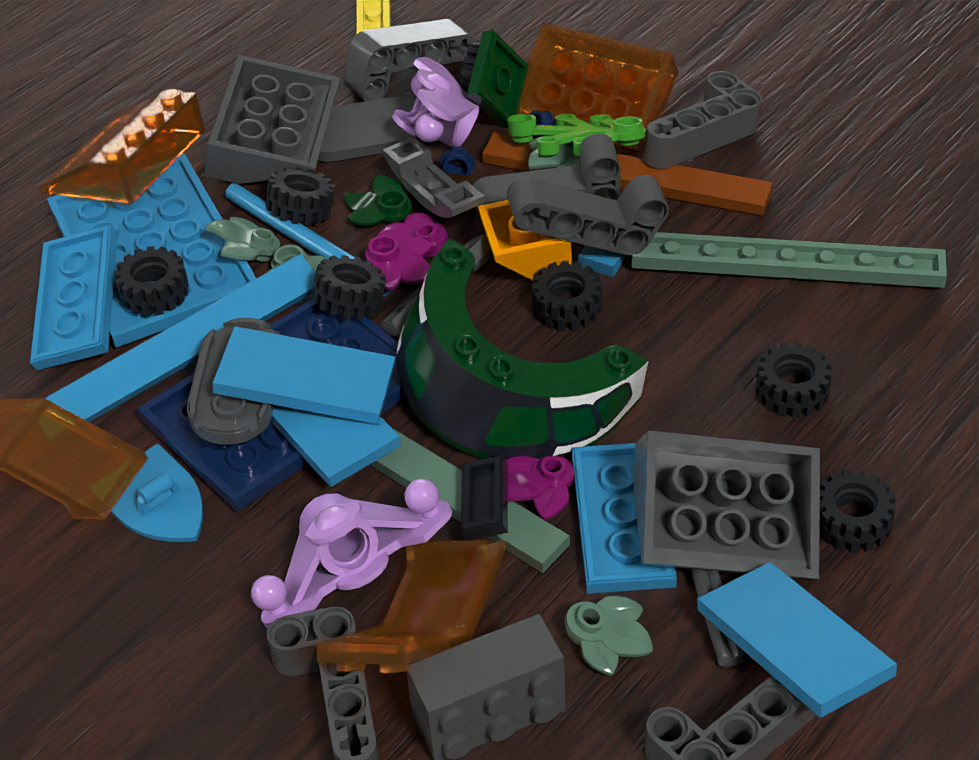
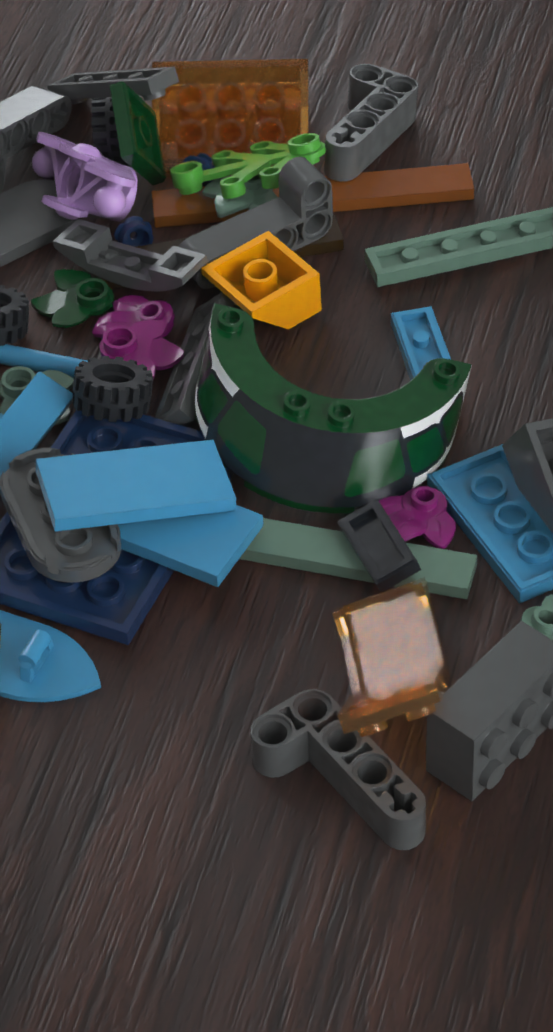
camera: 25 degrees left, 0 degrees up
(347, 546) = (275, 636): lavender piece -> none
(518, 36) = (146, 82): none -> dark grey plate
(566, 311) = (332, 349): black tyre -> none
(589, 219) = (332, 247): dark grey beam -> none
(601, 260) = (341, 282): dark azure tile -> none
(641, 328) = (418, 338): none -> dark azure tile

